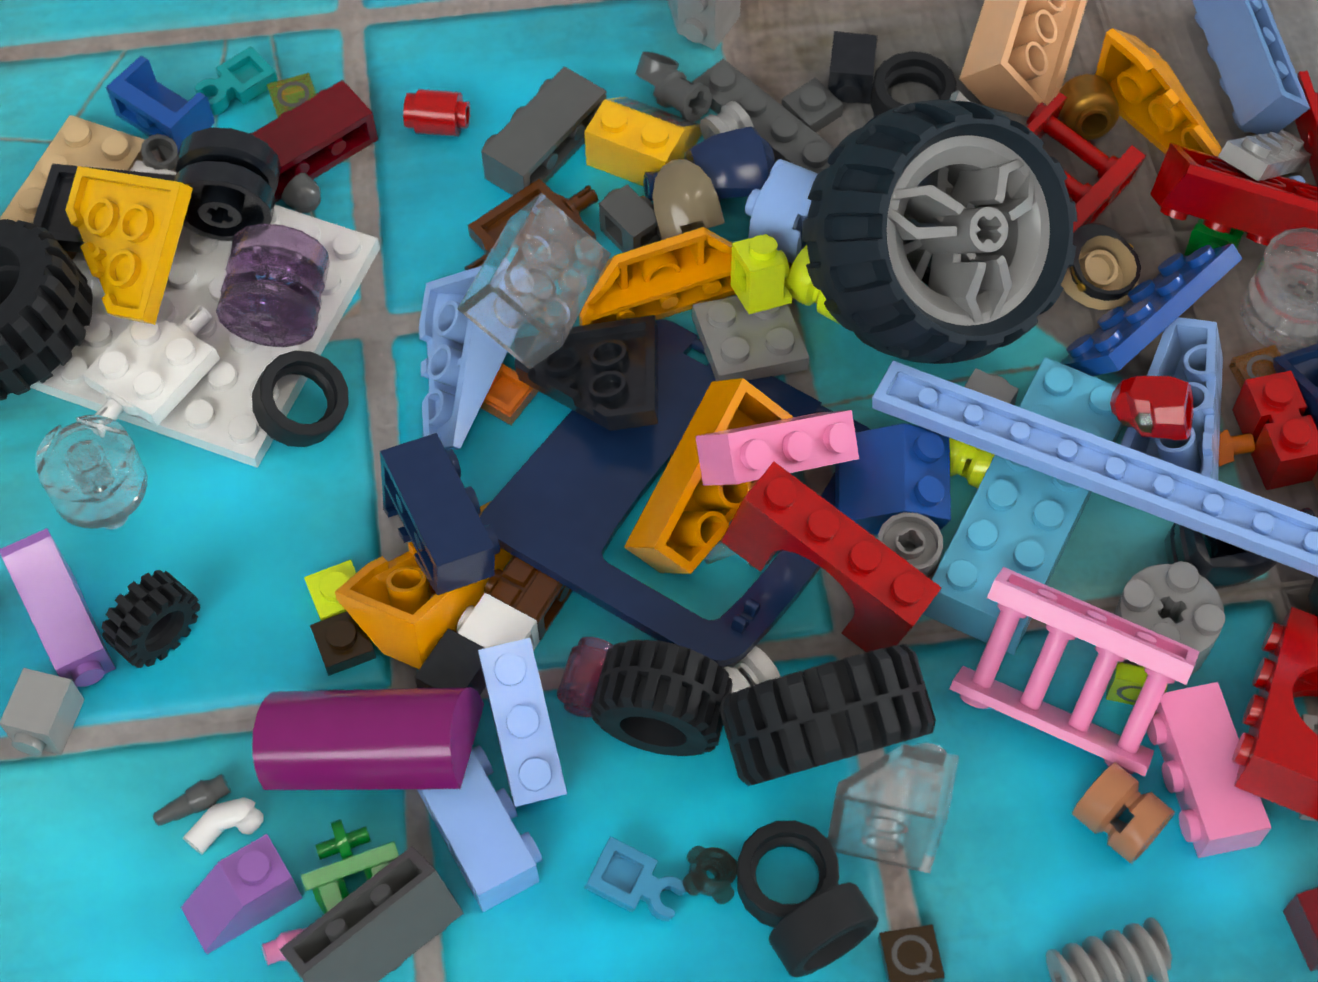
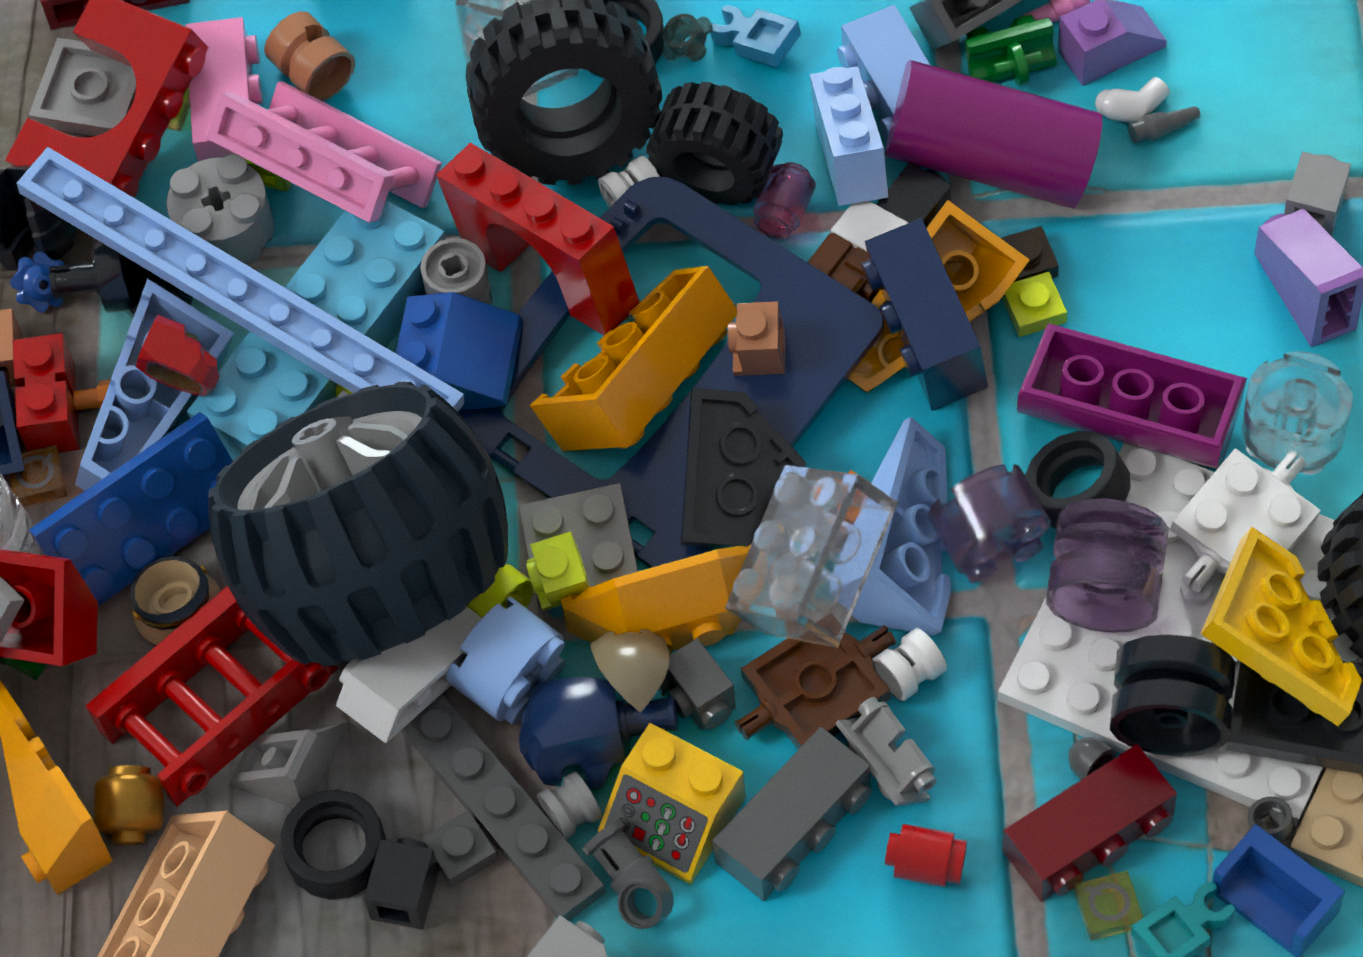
camera: 170 degrees left, 0 degrees up
(150, 618) = (1215, 256): black tyre -> none
(248, 474) = (1132, 395): none -> magenta brick
(379, 350) = (990, 521): none -> clear purple brick
(452, 249) = (910, 664): none -> white wheel
(468, 176) = (900, 772): none -> light grey hinge
(599, 479) = (757, 339): none -> nougat brick
(793, 443) = (569, 344): bright pink brick -> none

